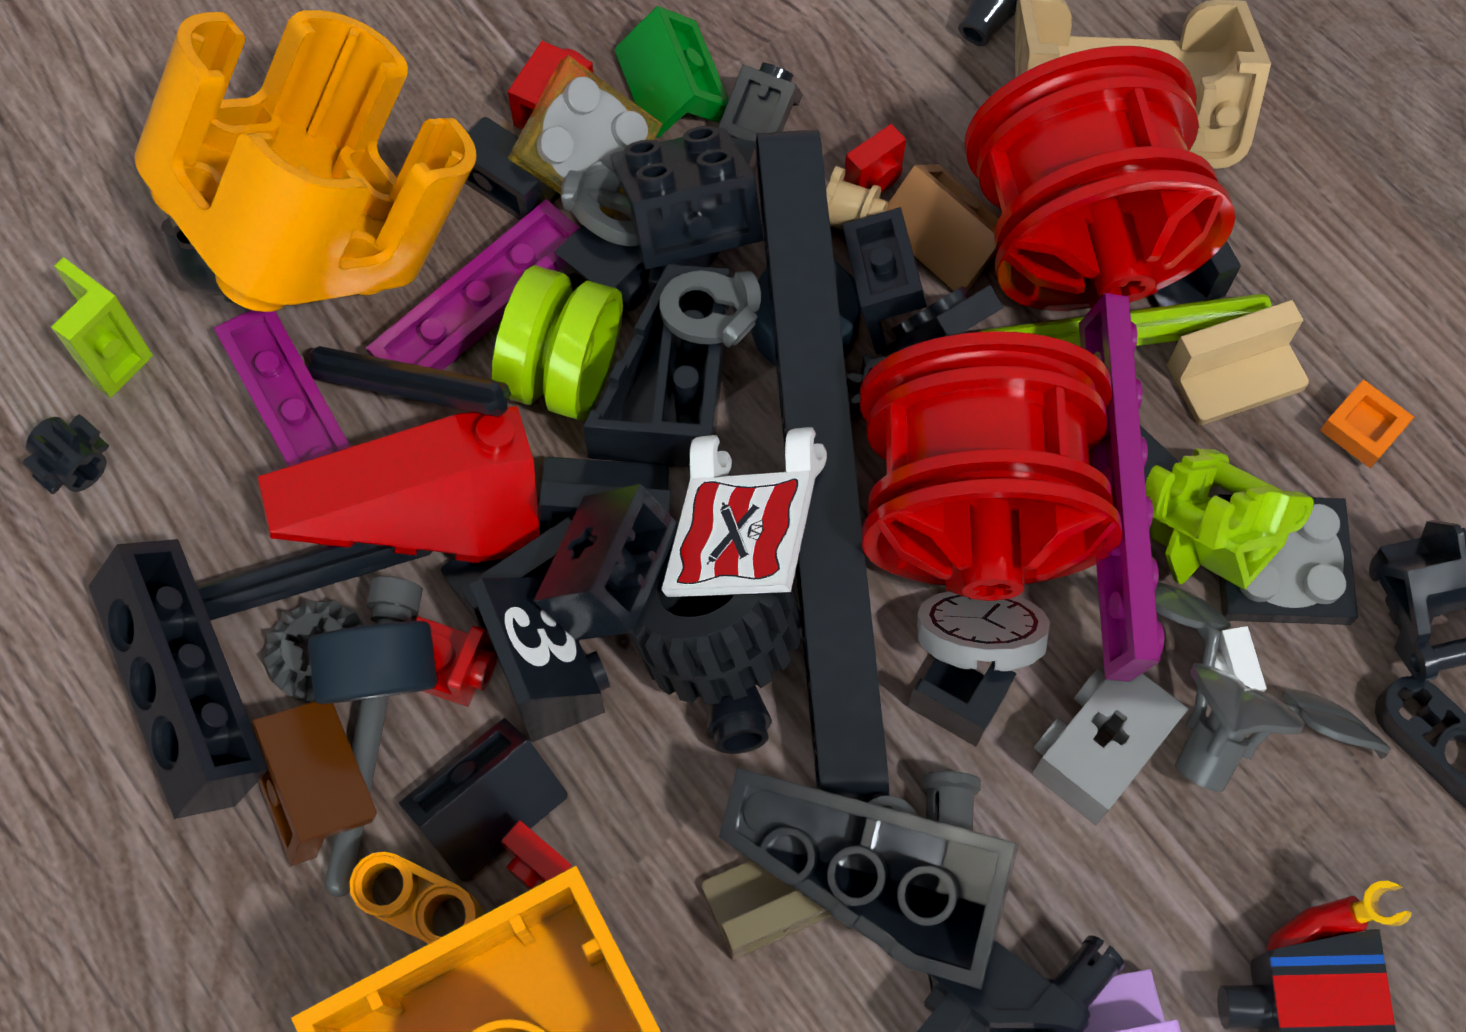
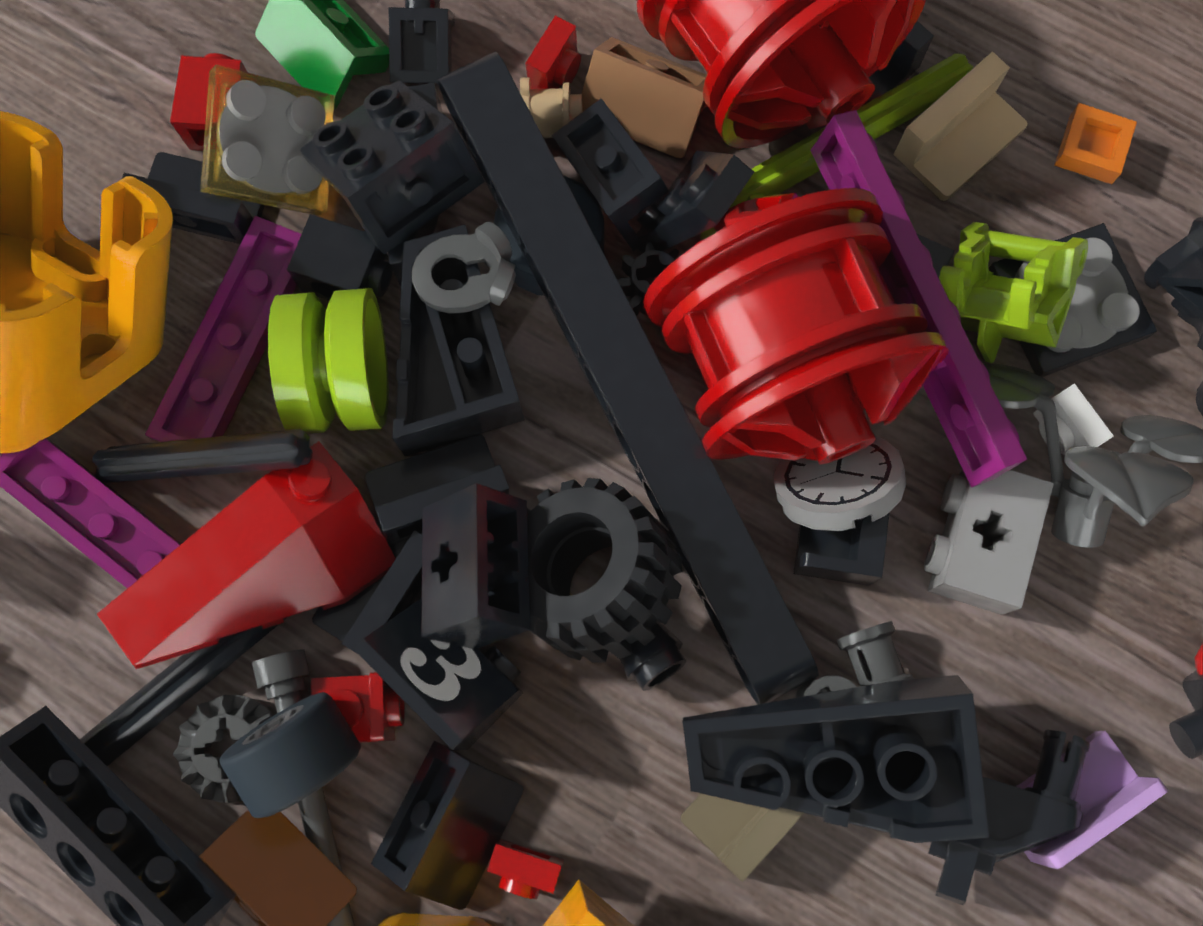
camera: 20 degrees left, 10 degrees up
(593, 189) = (292, 201): dark grey piece -> none
(742, 528) = (590, 485): white flag -> none

